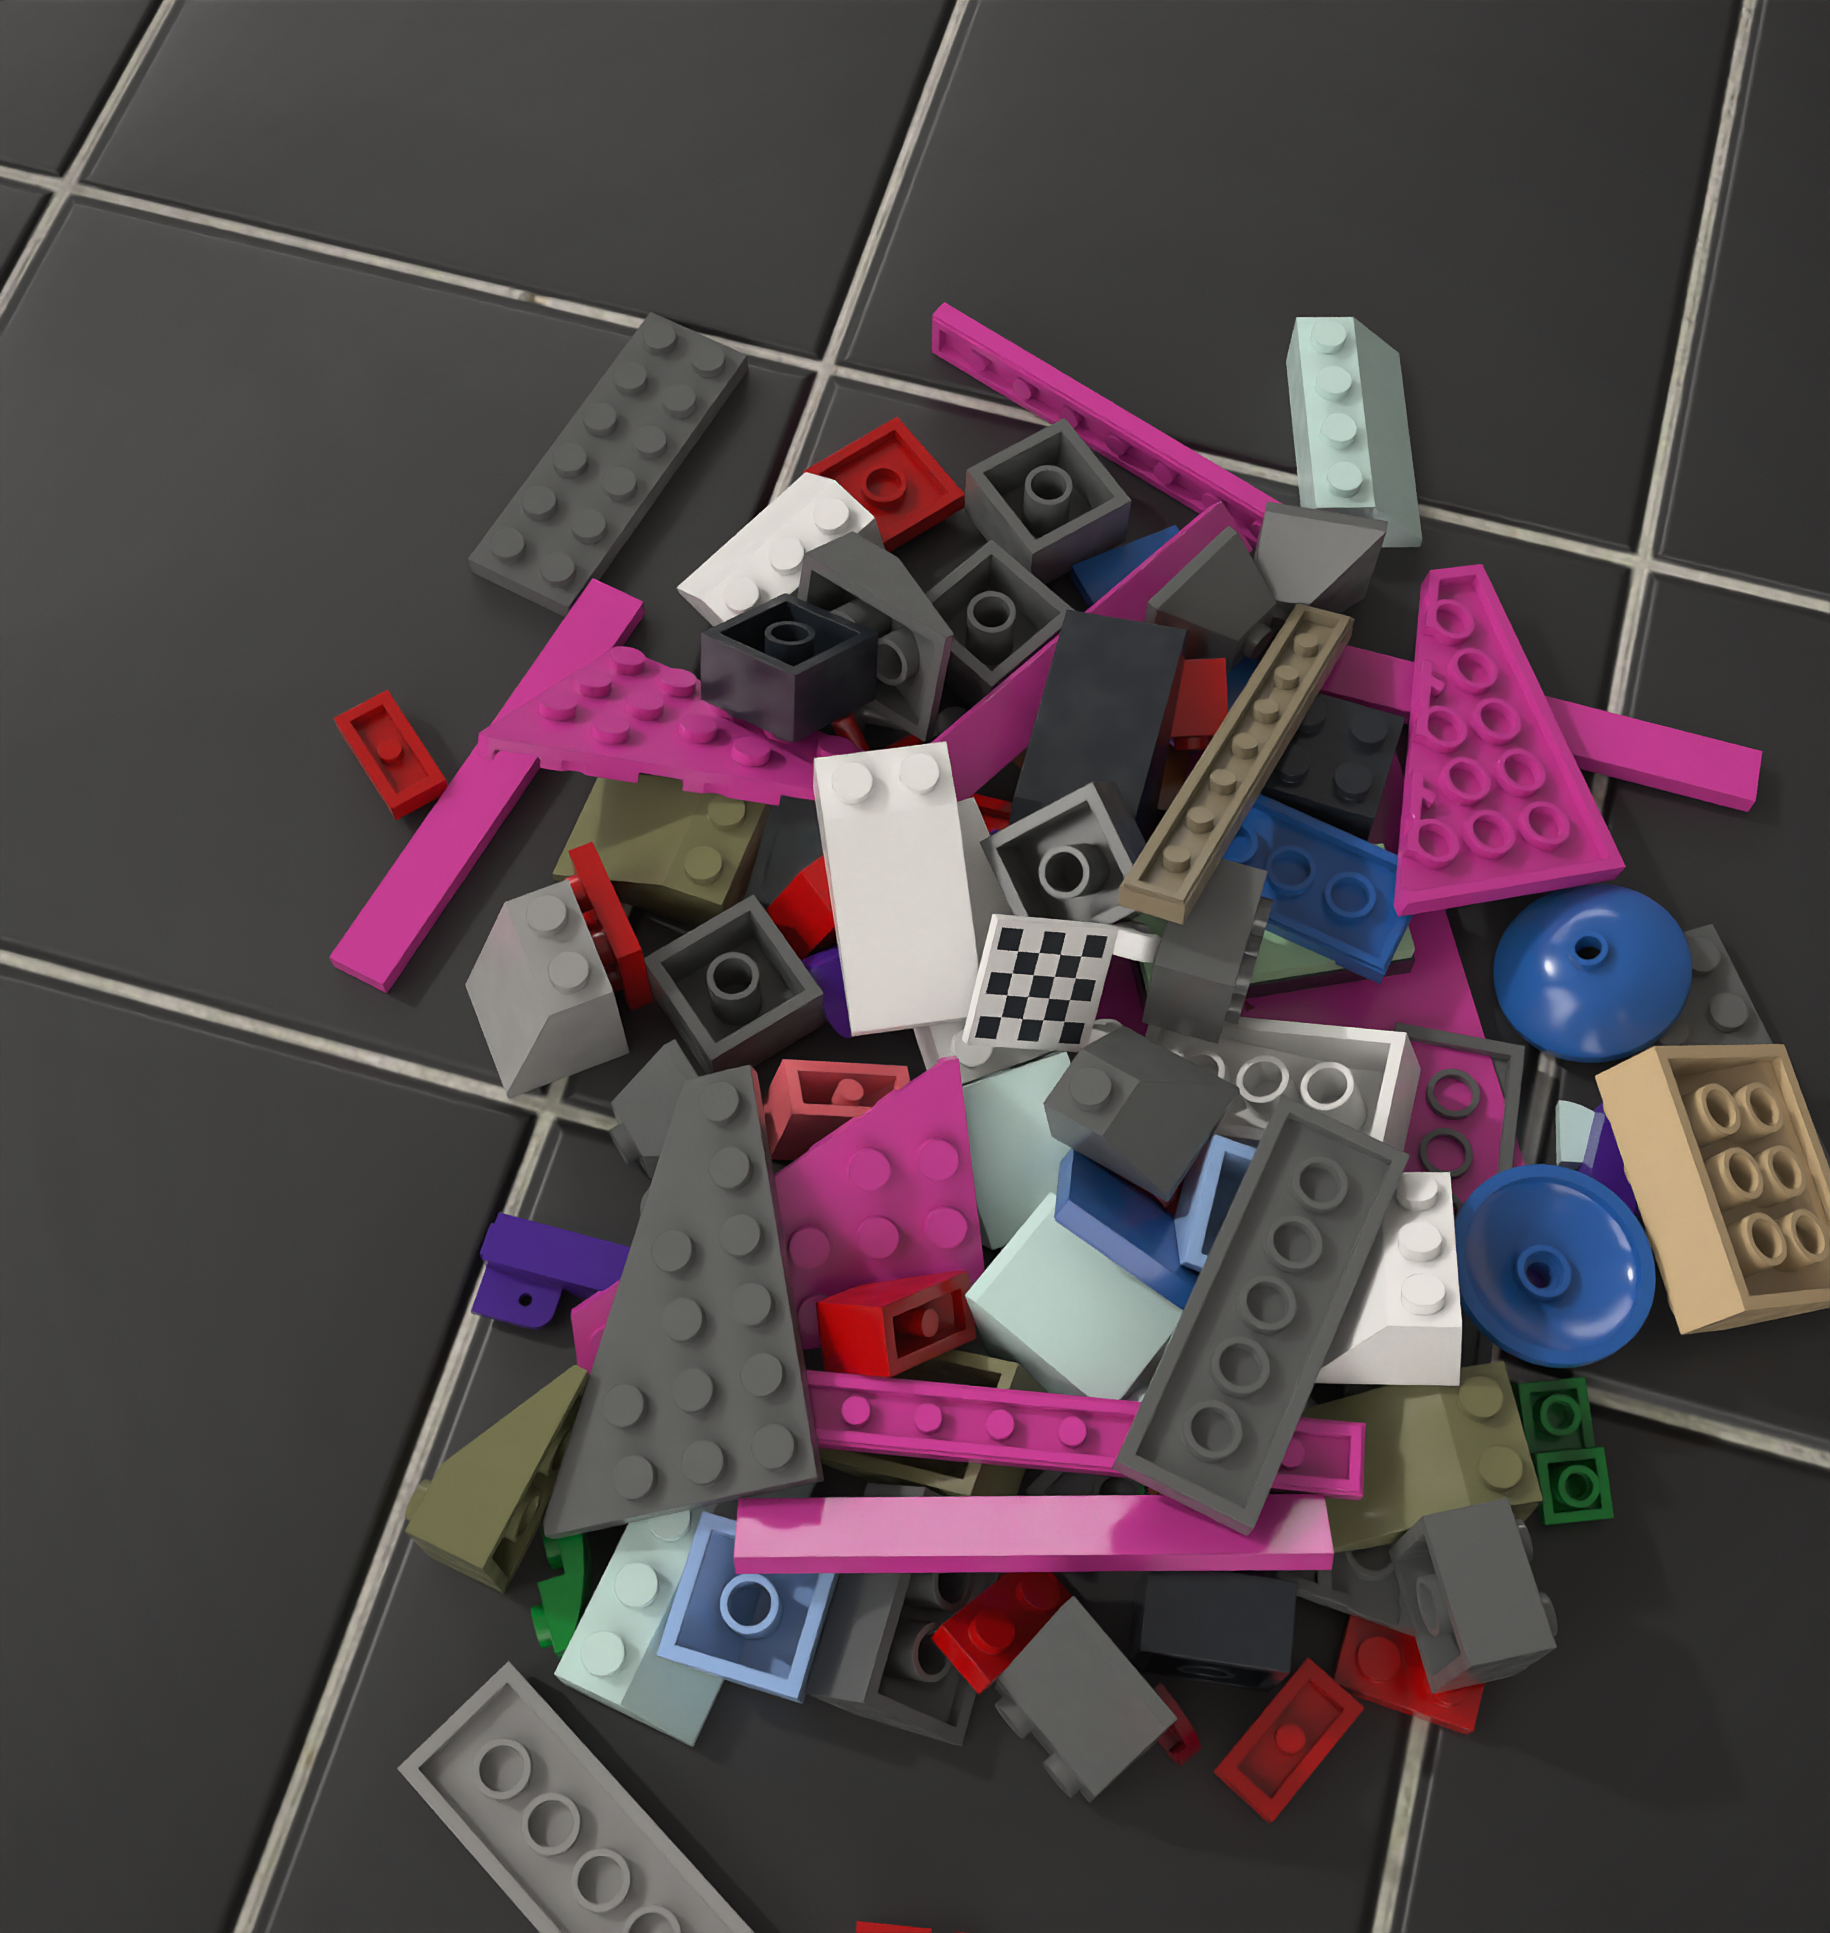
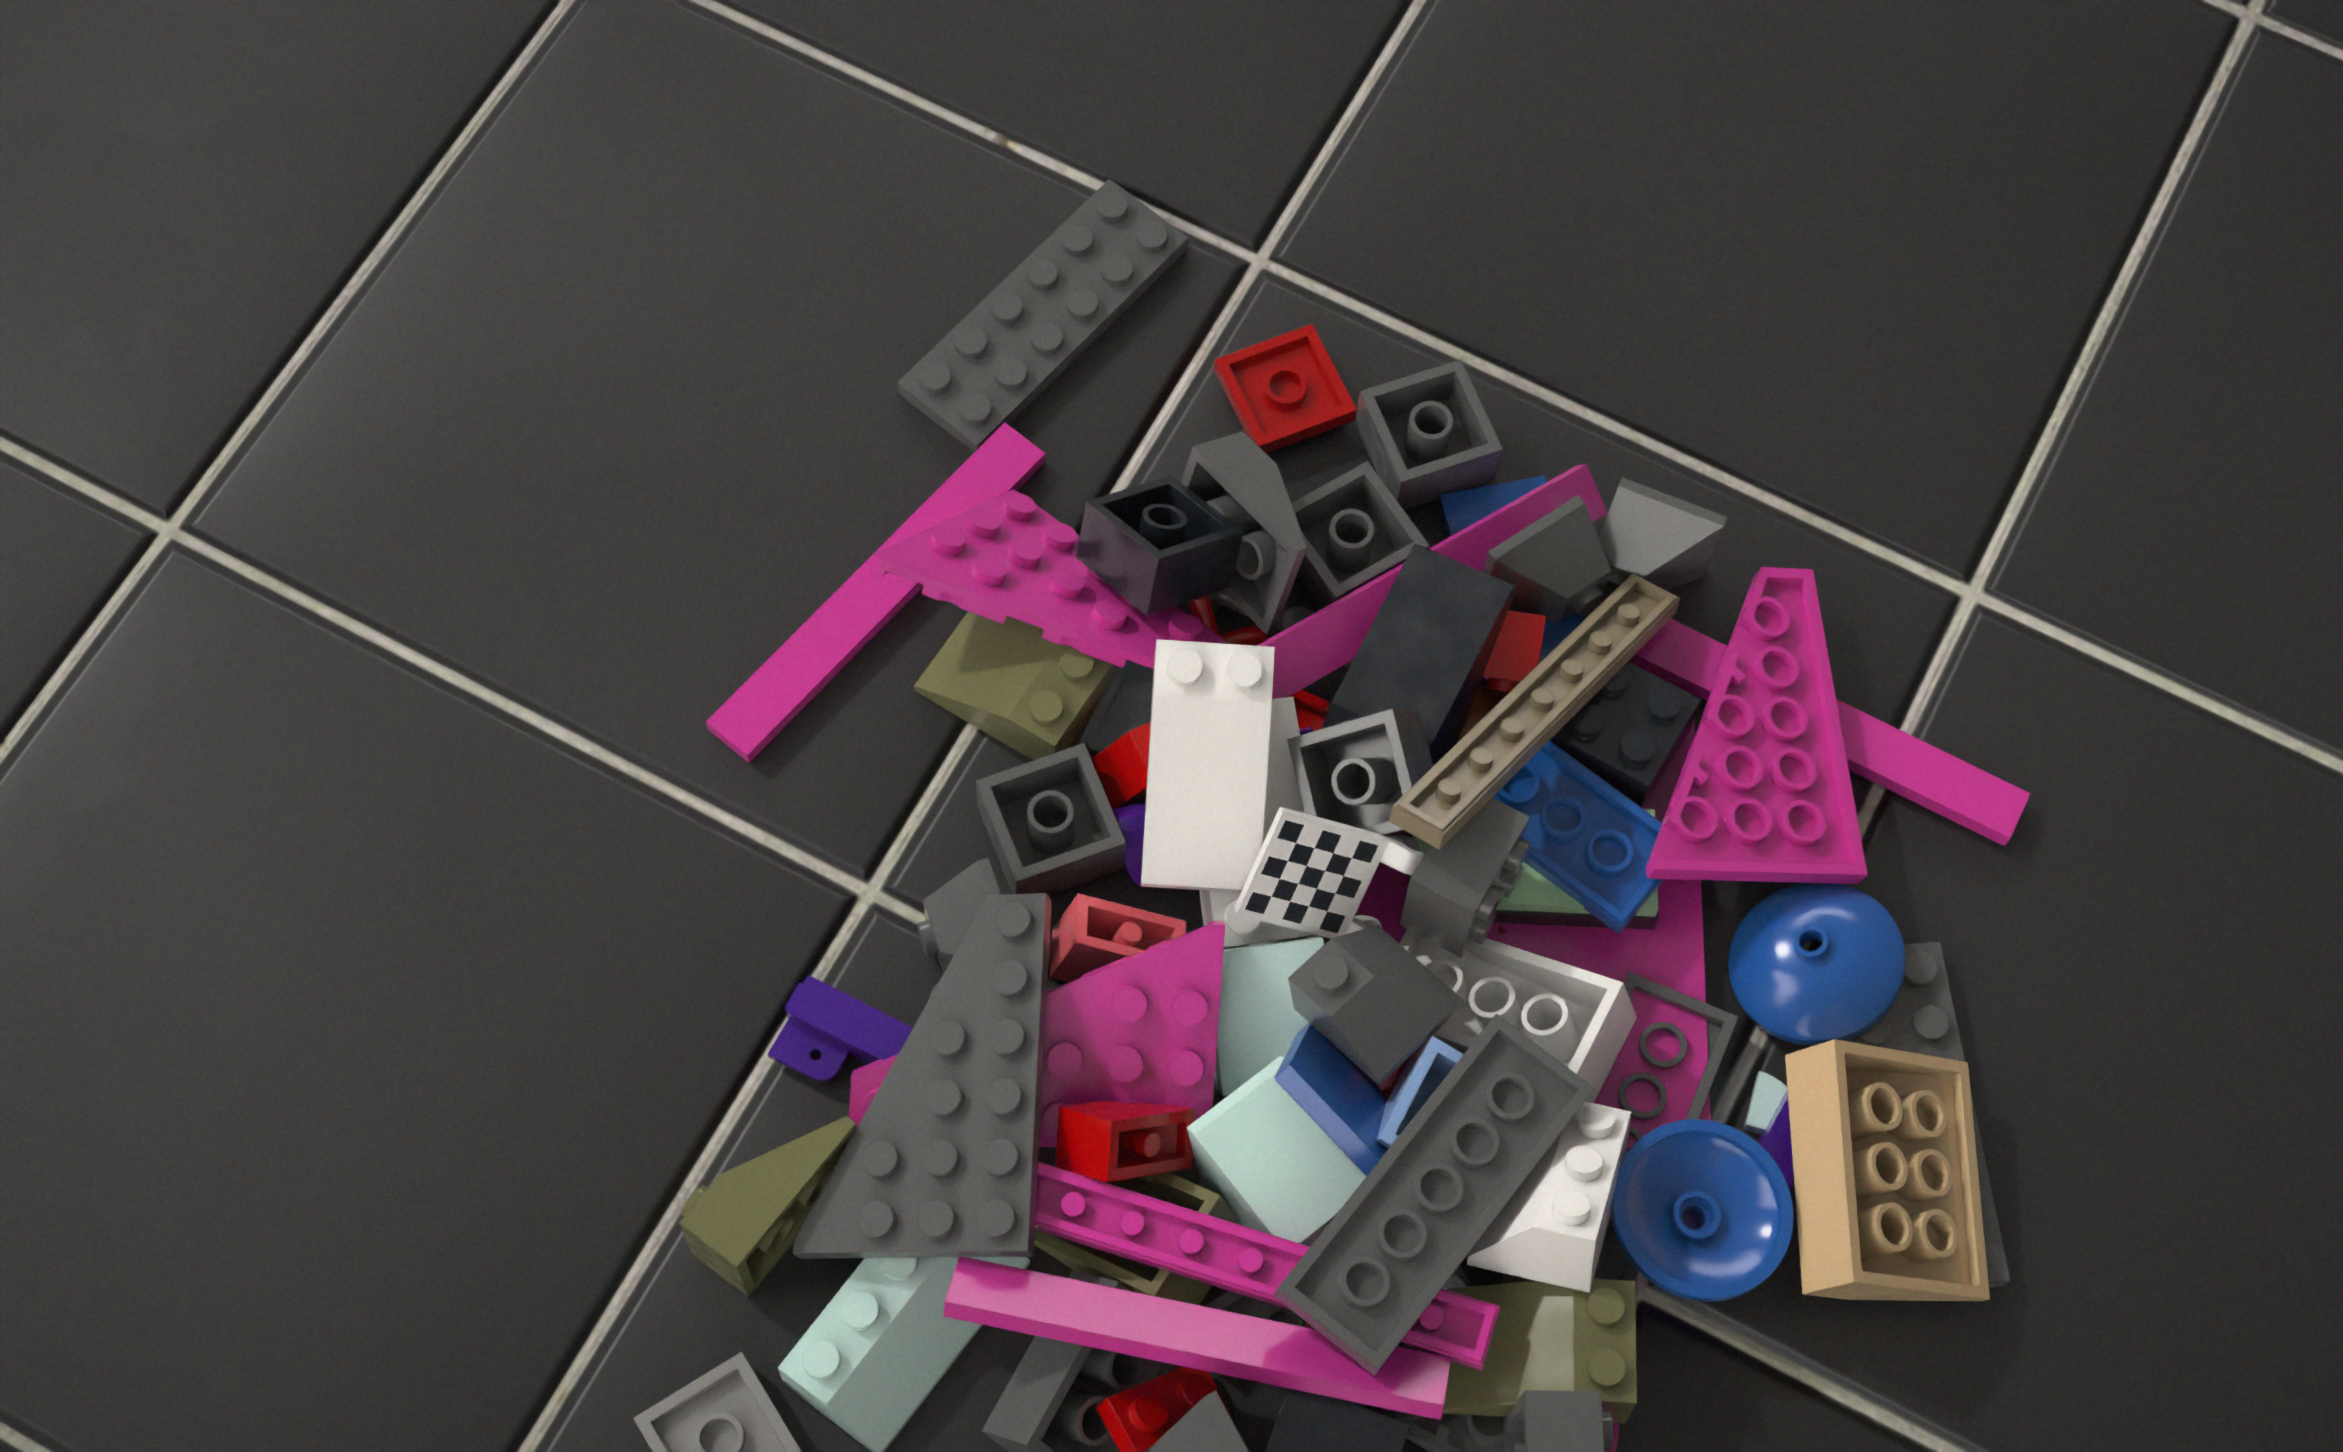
camera: 10 degrees right, 0 degrees up
(391, 754) = (794, 550): red plate -> none
(544, 993) = (884, 793): light grey slope -> none
(565, 1595) = (798, 1307): green slope -> none
(609, 927) = (951, 746): red plate -> none
(745, 1625) = (945, 1362): light blue slope -> none
(770, 549) = (1162, 433): white slope -> none
(1096, 420) = (1494, 363): dark pink tile -> none
(1352, 426) = (1731, 418): light aqua slope -> none
(1563, 1450) = (1679, 1373): green slope -> none

